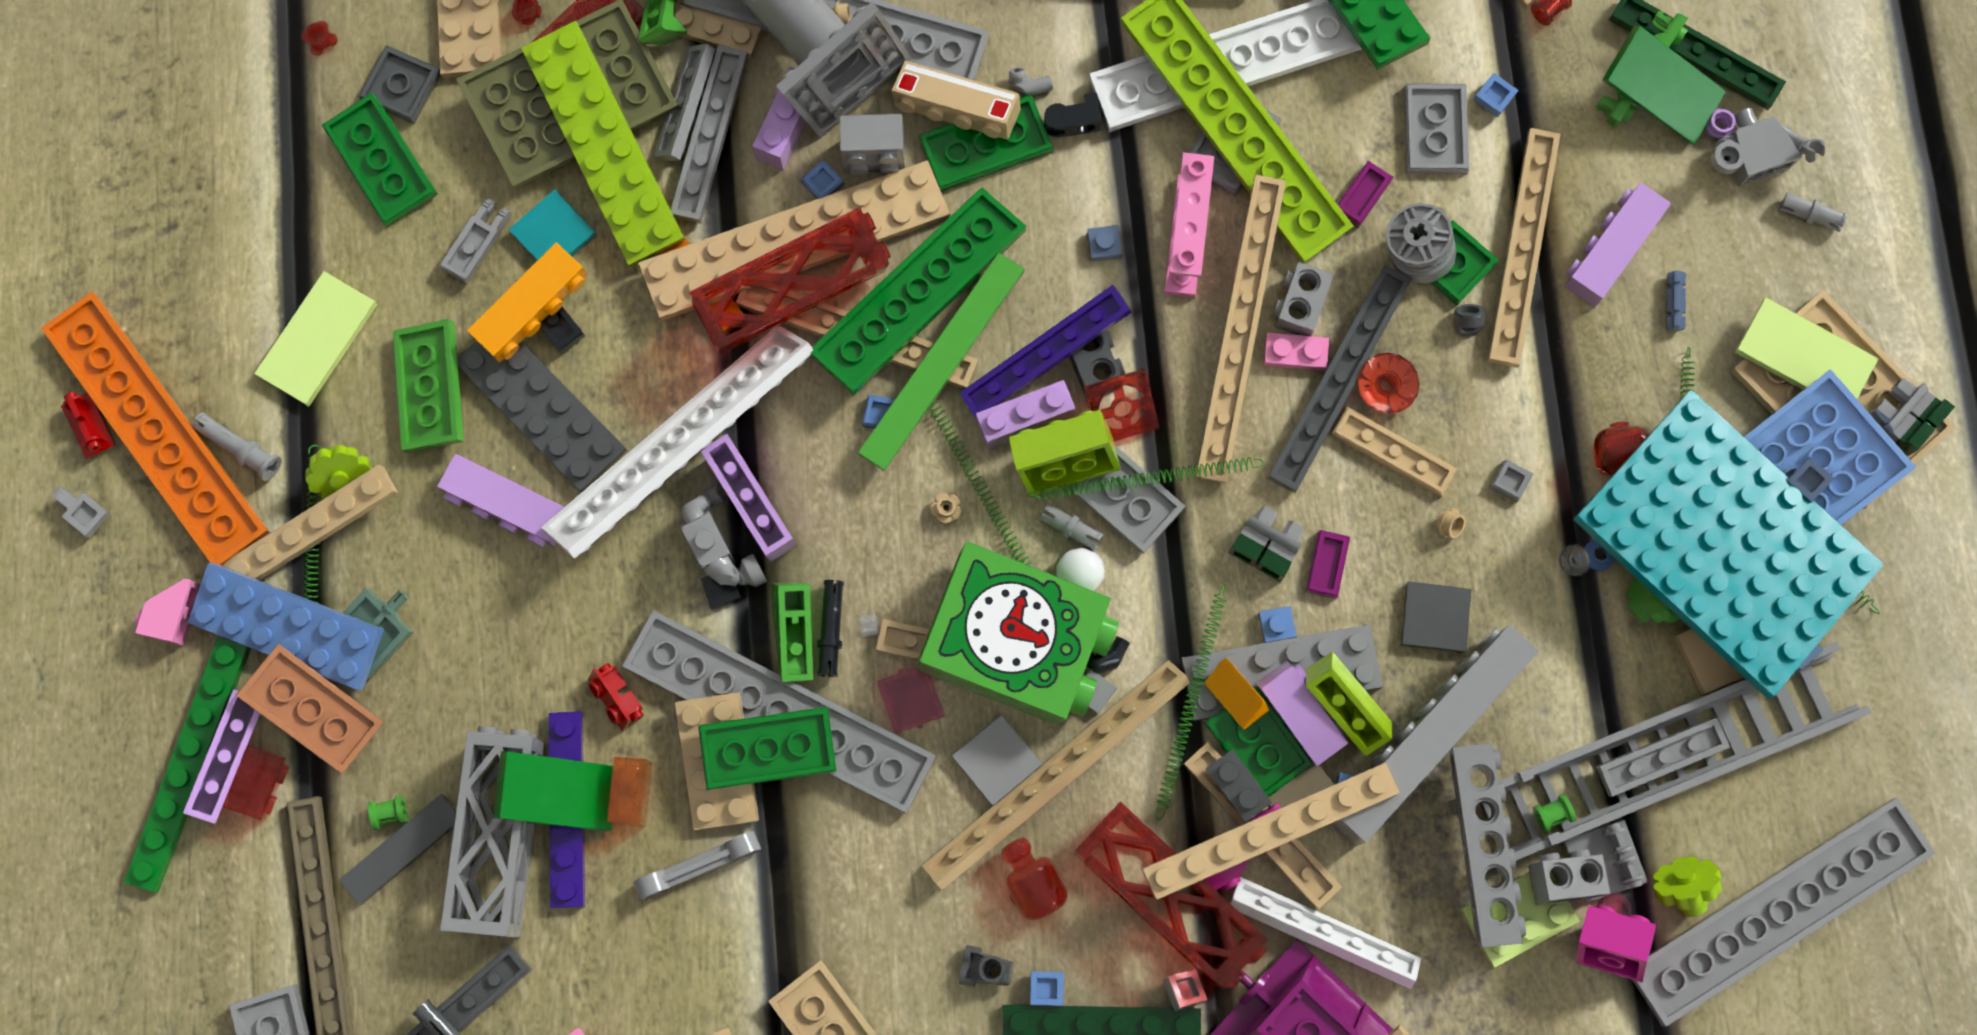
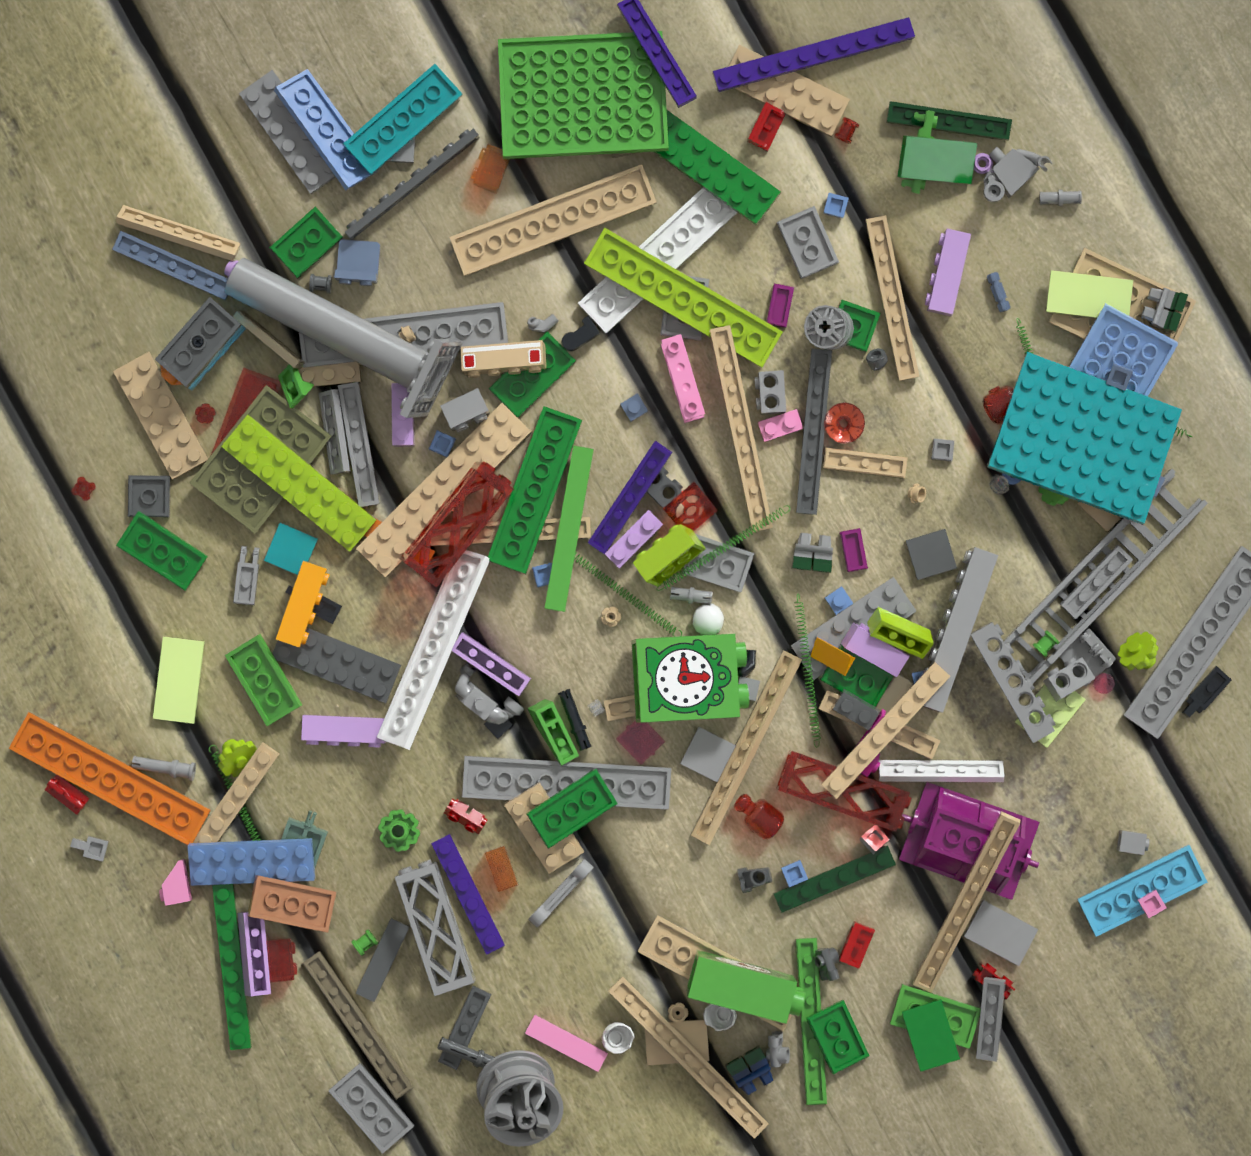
camera: 25 degrees left, 10 degrees up
(513, 674) = (399, 830): none -> bright green plant
(553, 791) = (461, 888): green tile -> none
(1615, 942) = (1109, 705): dark pink brick -> none
(1764, 989) = (1206, 691): none -> black hinge

